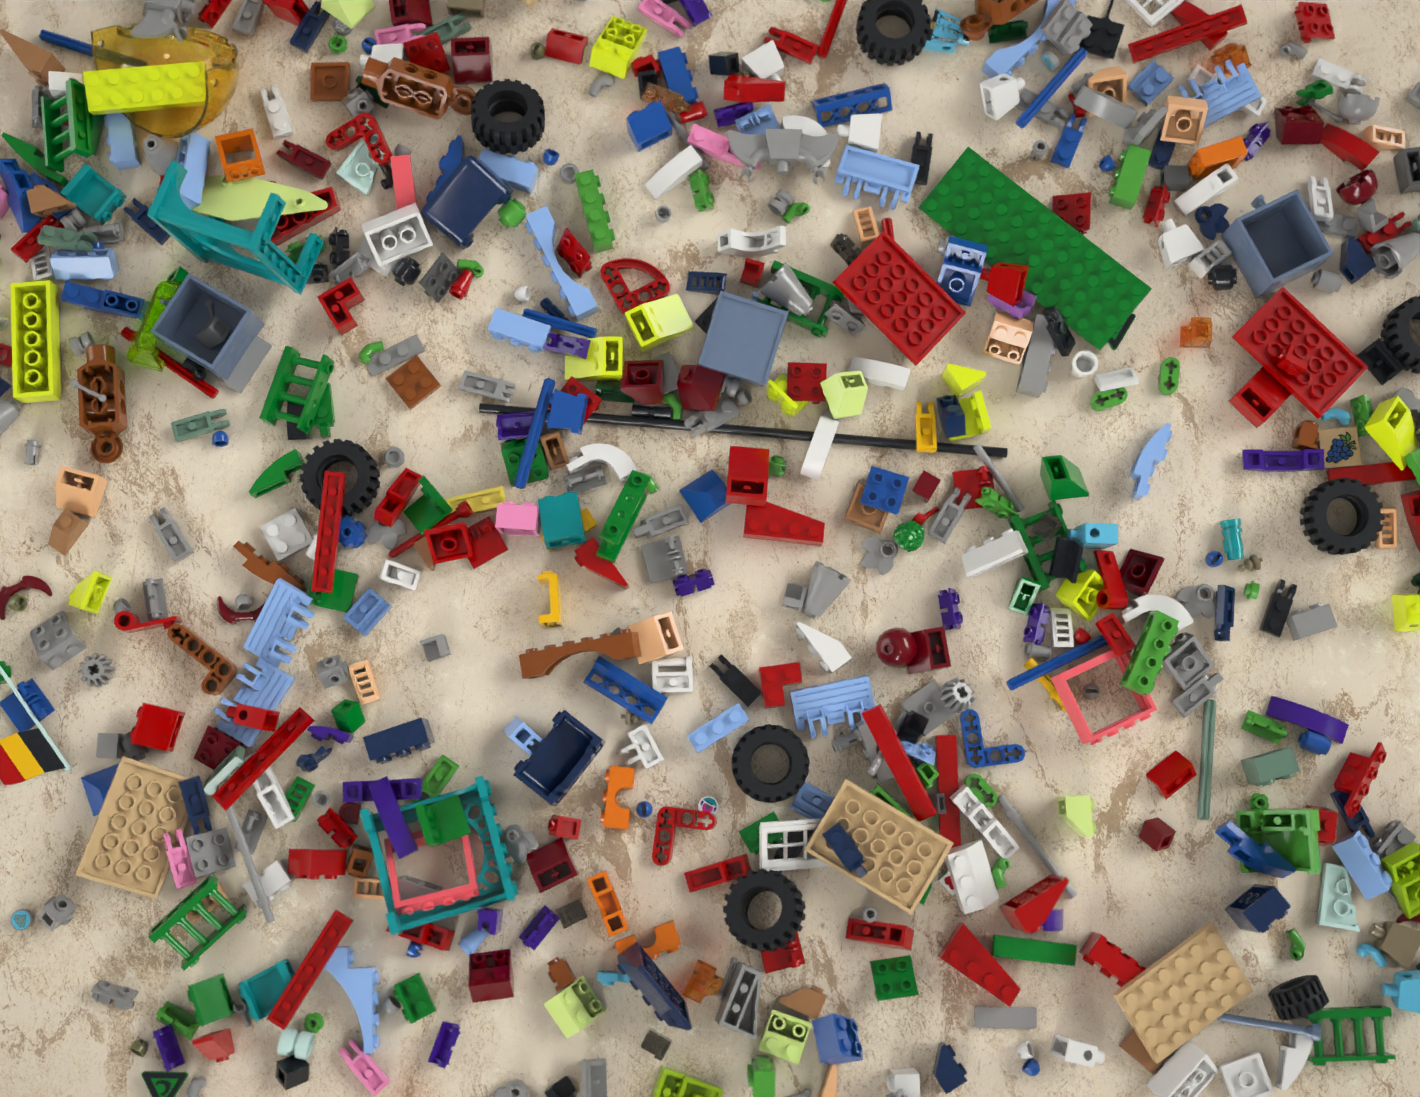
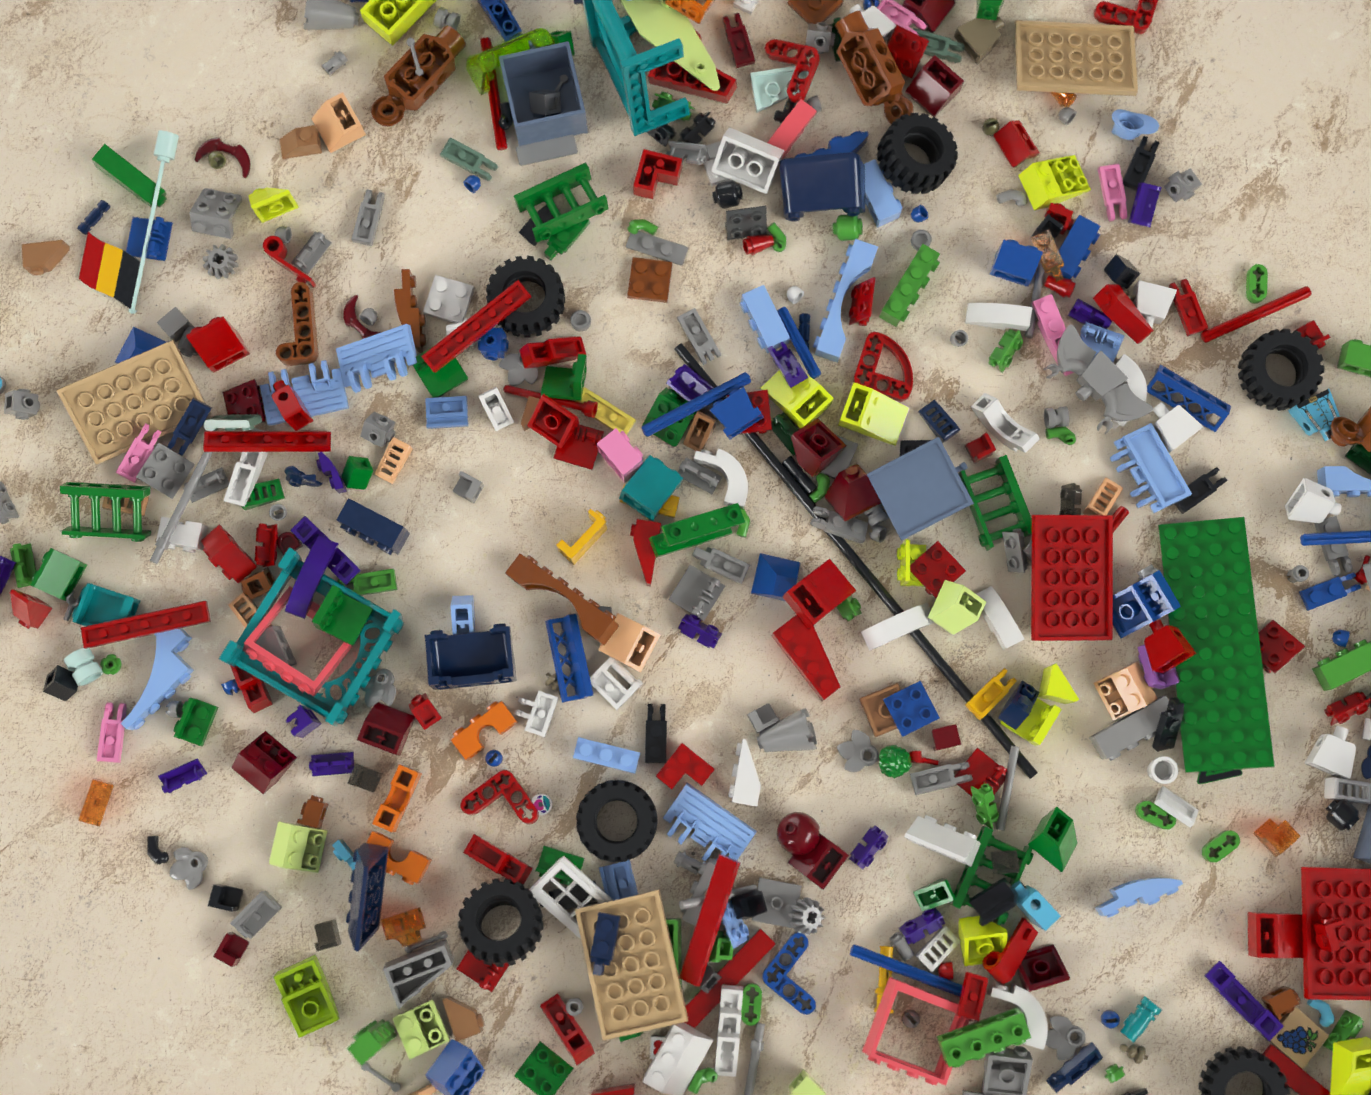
camera: 45 degrees right, 0 degrees up
(277, 474) = (486, 249): green slope -> none
(472, 941) = (274, 724): light blue cone -> none
(787, 291) = (991, 488): light grey cone -> none

